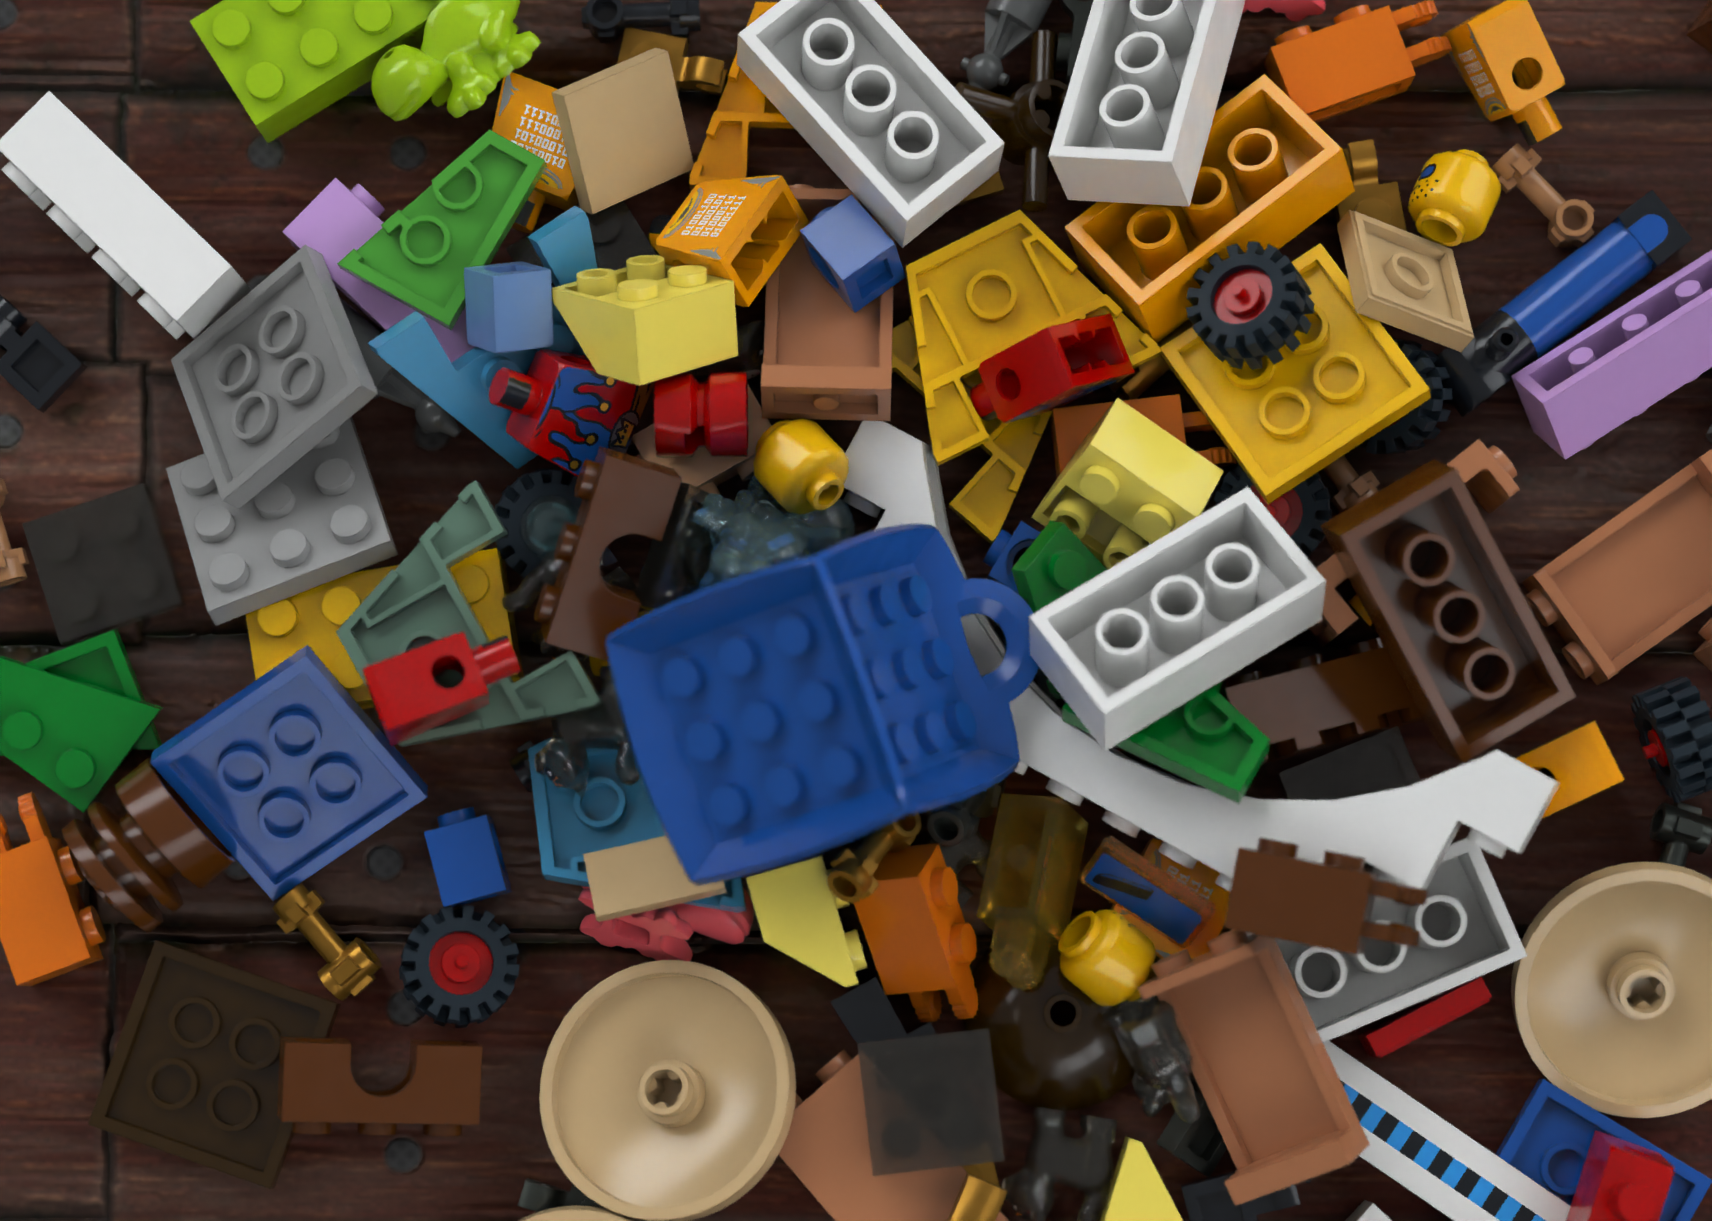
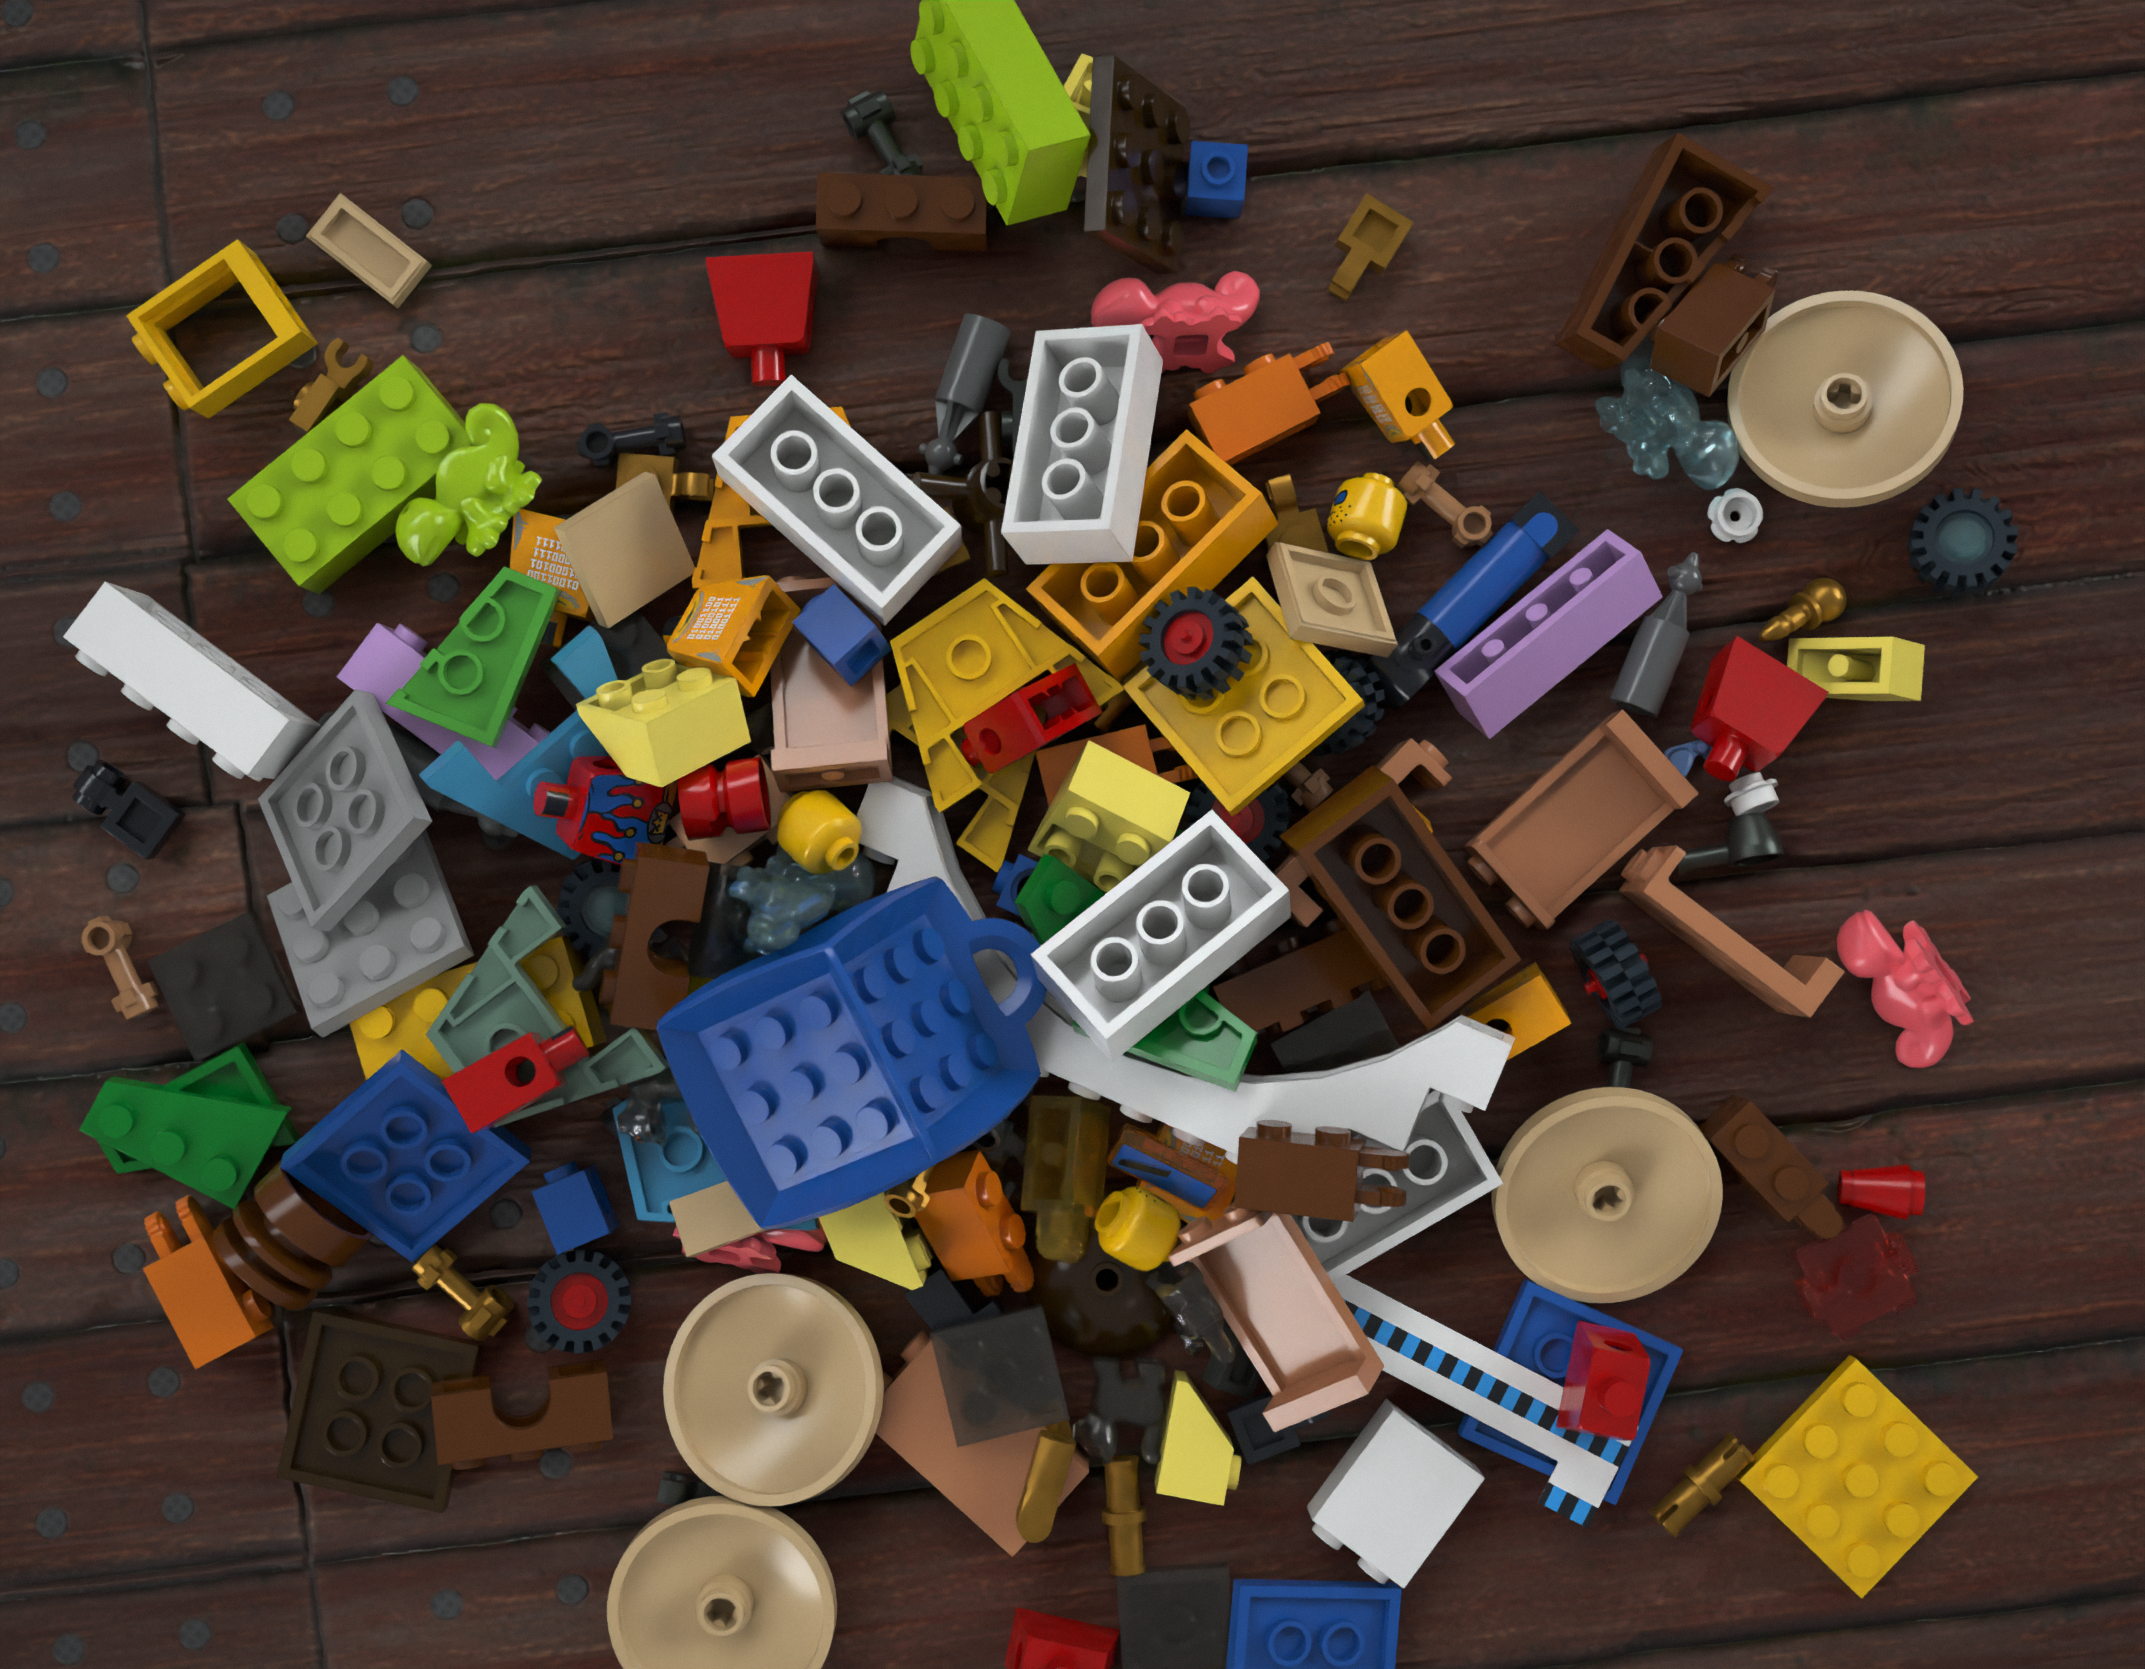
camera: 10 degrees left, 5 degrees up
(508, 307) = (541, 724): medium blue panel -> none
(1425, 1017) = (1415, 1248): red tile -> none

